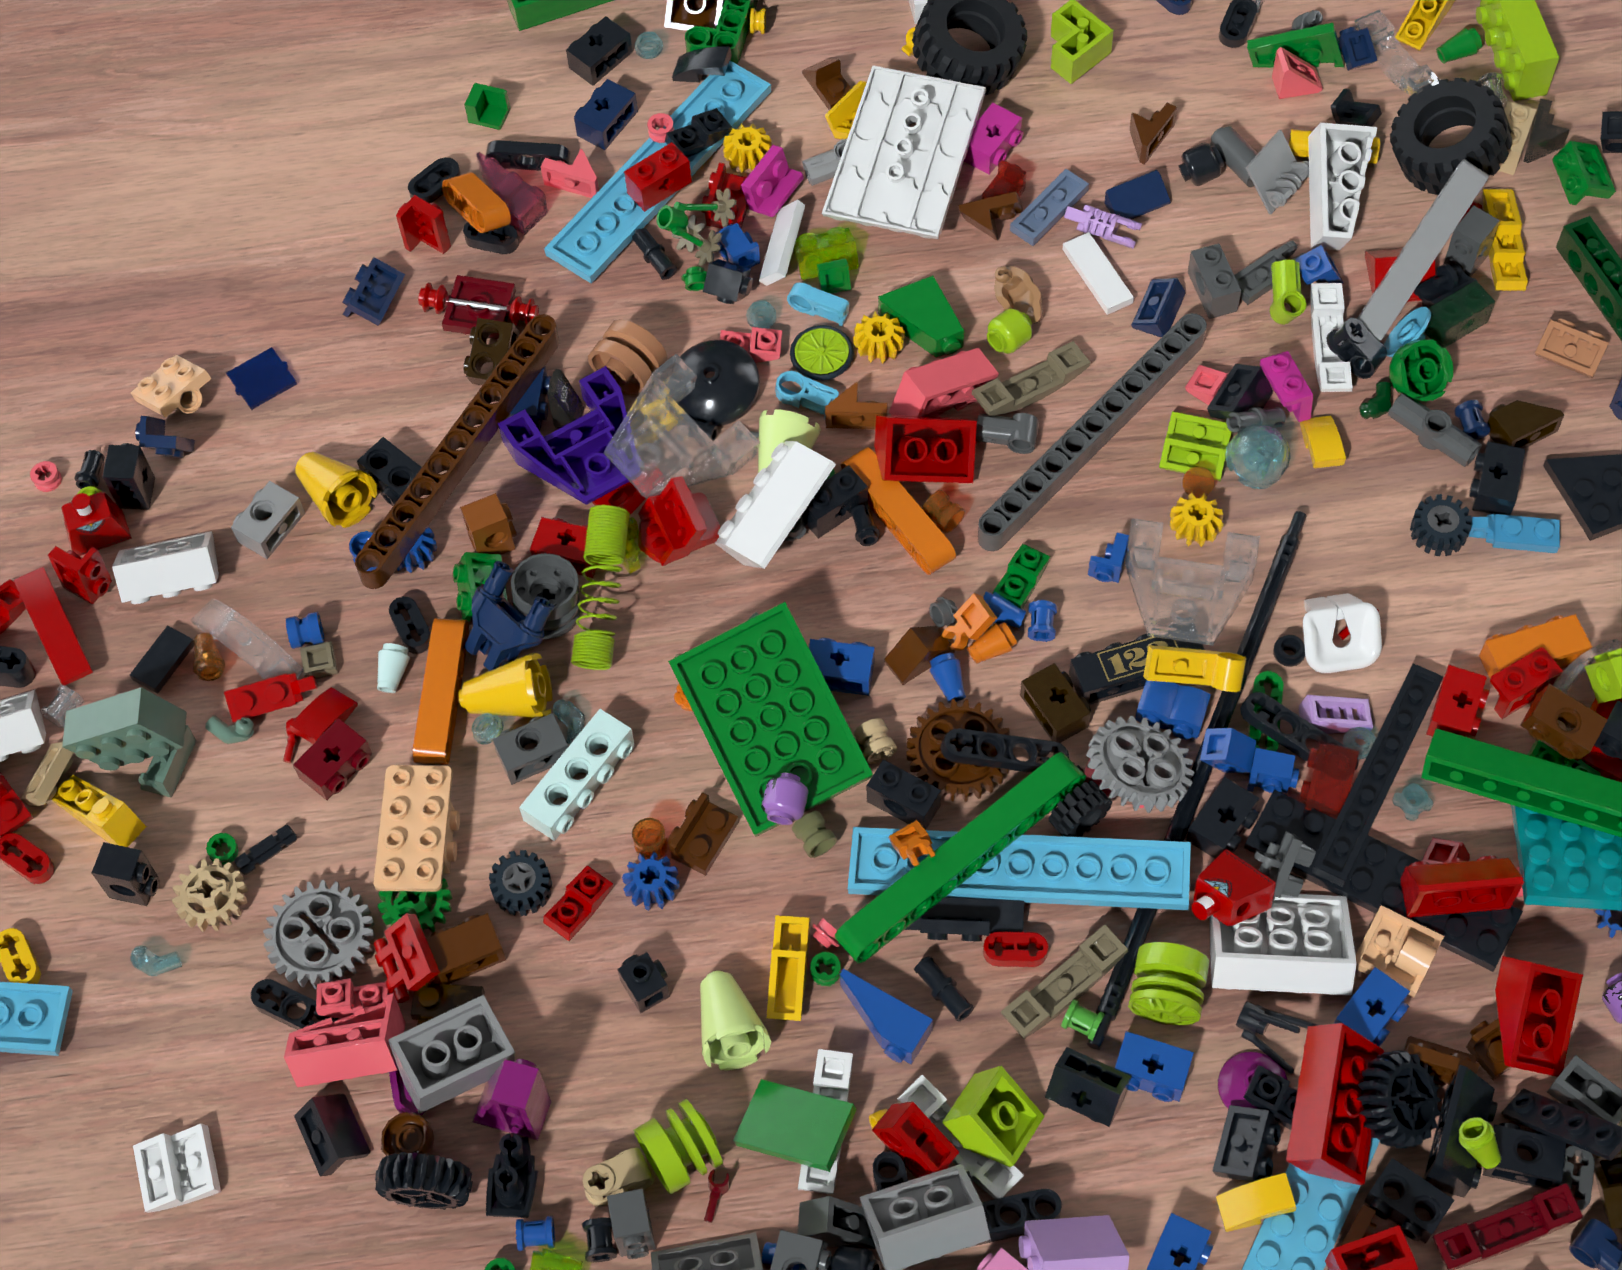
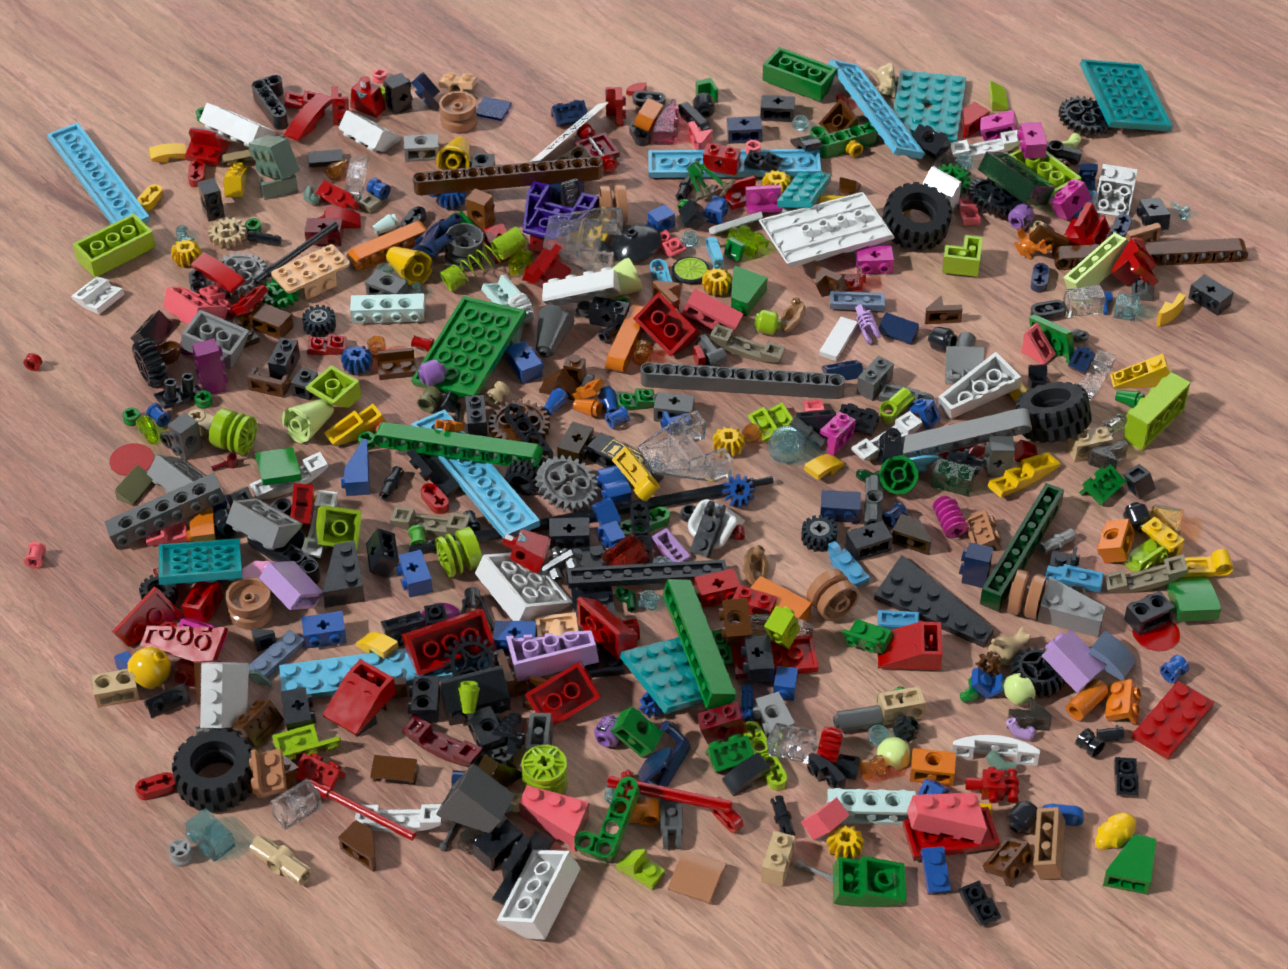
camera: 50 degrees right, 15 degrees down
(95, 1079) = (114, 245): none -> lime brick
(199, 991) = (185, 252): none -> yellow gear
(241, 425) = (458, 111): none -> nougat wheel
(313, 963) = (218, 272): none -> red slope
(364, 885) = (290, 256): none -> black bar
(396, 182) = (636, 87): none -> tile
(418, 317) = (567, 133): none -> white sticker
(514, 125) = (704, 104): none -> black head
(546, 1137) = (203, 404): none -> green bush
(568, 981) = (284, 358): none -> black brick
(595, 1032) = (268, 385): none -> reddish brown hinge
(677, 606) = (500, 291): none -> light aqua bracket
(696, 321) = (661, 218): none -> blue brick
(696, 767) = (422, 343): none -> red pin
(699, 948) = (336, 387): none -> lime slope
(735, 602) = (522, 302): none -> white gear
(800, 126) = (804, 190): none -> teal plate
(813, 594) = (552, 329): none -> dark grey cone
(842, 812) = (450, 403): none -> black plant
(908, 608) = (577, 365): none -> reddish brown brick
(1009, 452) = (698, 355): none -> red tile
(1083, 537) = (674, 405): none -> brick
(1090, 1163) = (343, 578): none -> black wedge
(1091, 925) = (473, 523): none -> black pin
(1275, 340) = (865, 418): none -> black bracket
(1304, 567) = (737, 483): none -> blue gear
(1355, 650) = (708, 530): none -> black hinge
(1391, 822) = (627, 597): none -> dark green arm
(1413, 470) = (841, 505): none -> dark blue brick
(1448, 635) = (755, 564): none -> medium nougat arm
(1451, 996) = (550, 653): none -> lavender wedge
(1527, 364) = (950, 517): none -> dark pink piece
(1581, 581) = (833, 594): none -> nougat wheel

